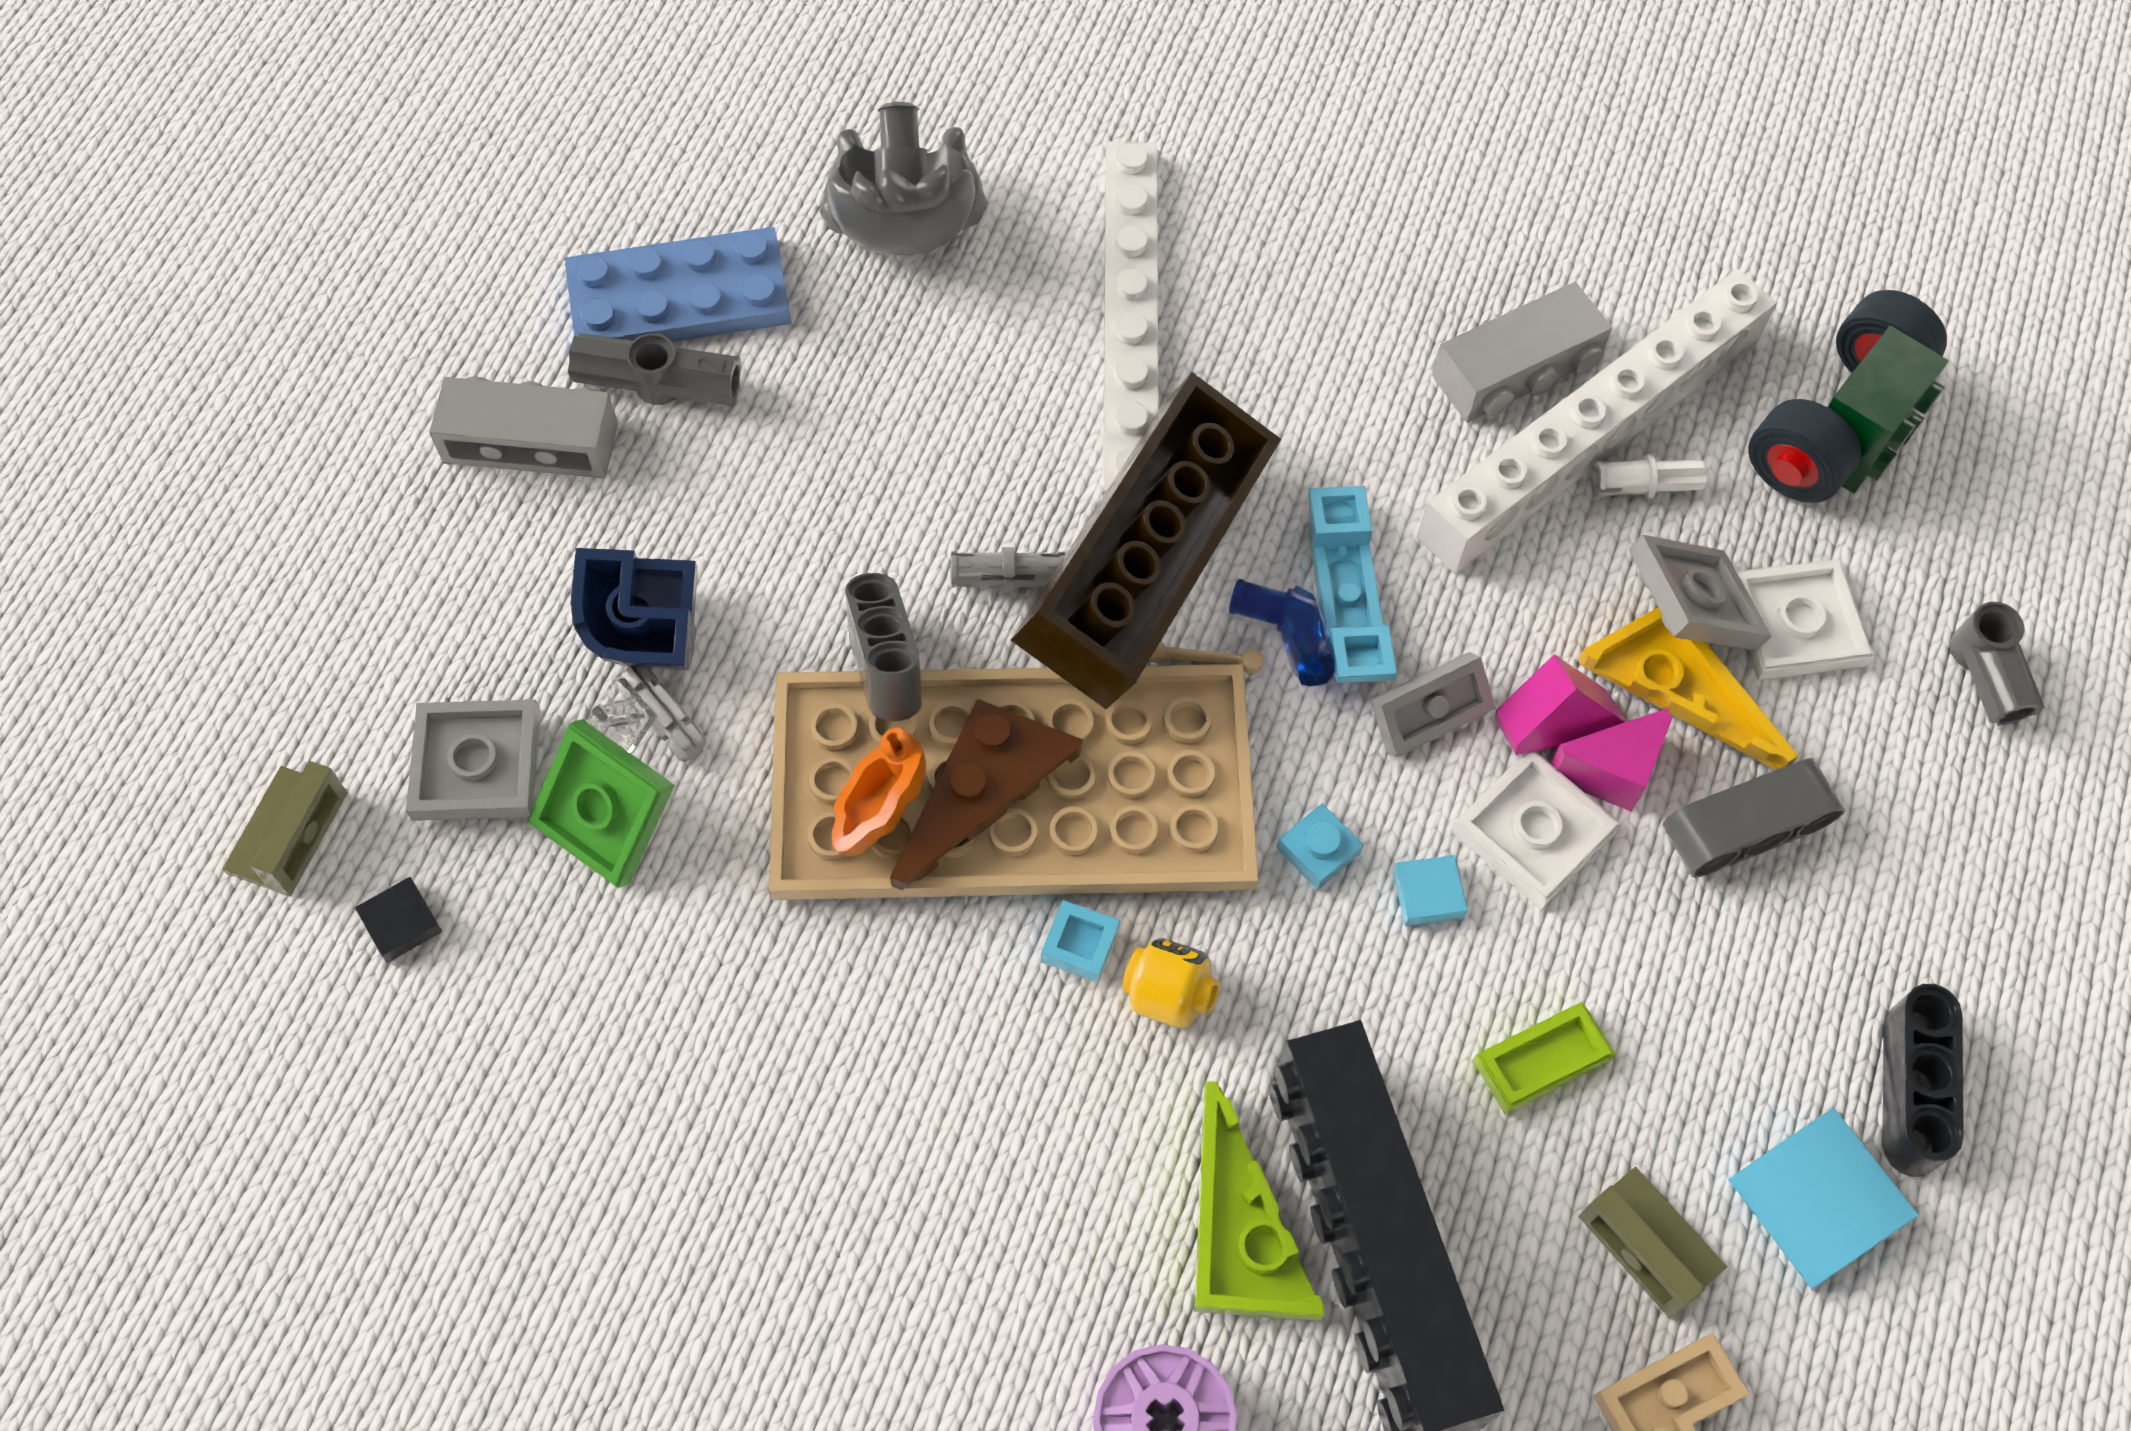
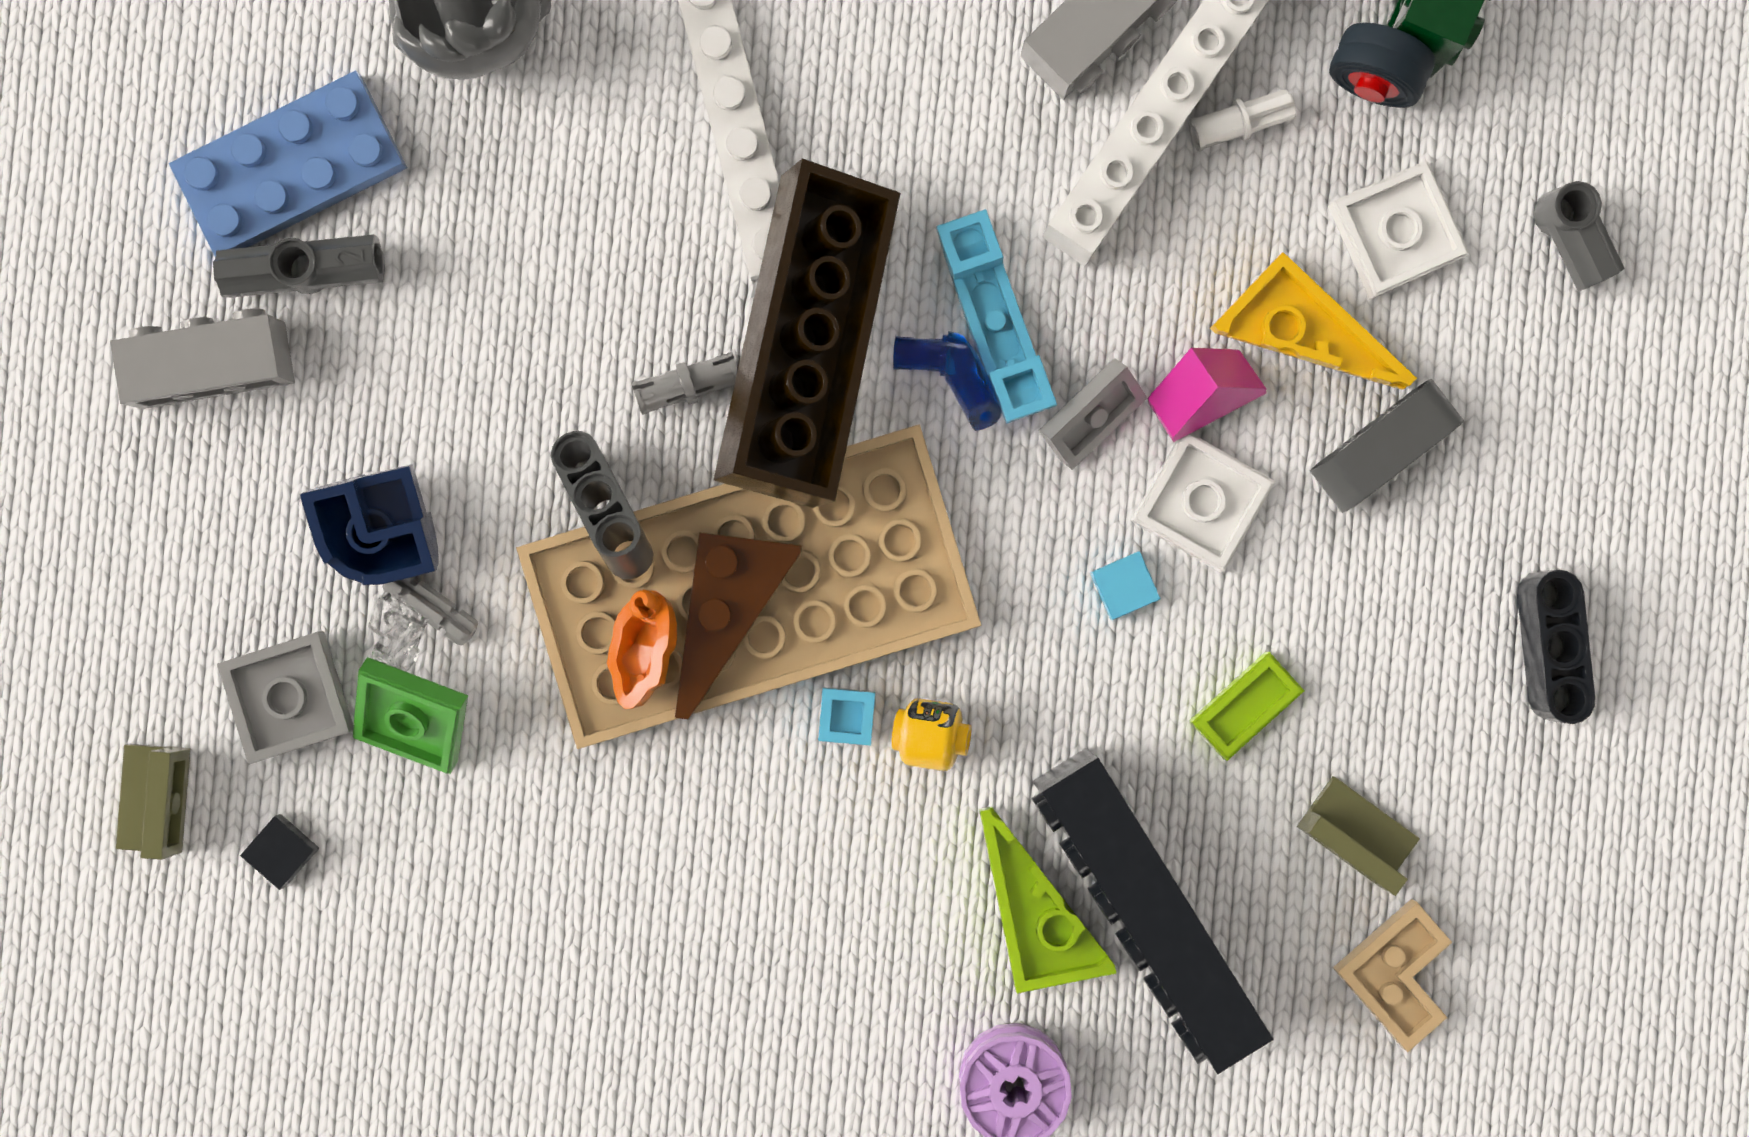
camera: 15 degrees left, 25 degrees up
(1251, 659) = (923, 409): tan hinge -> none
(1319, 846) = (1024, 570): medium azure plate -> none
(1615, 760) = (1266, 425): dark pink slope -> none
(1699, 593) = (1307, 242): light grey plate -> none
(1823, 1197) = (1487, 765): medium azure slope -> none

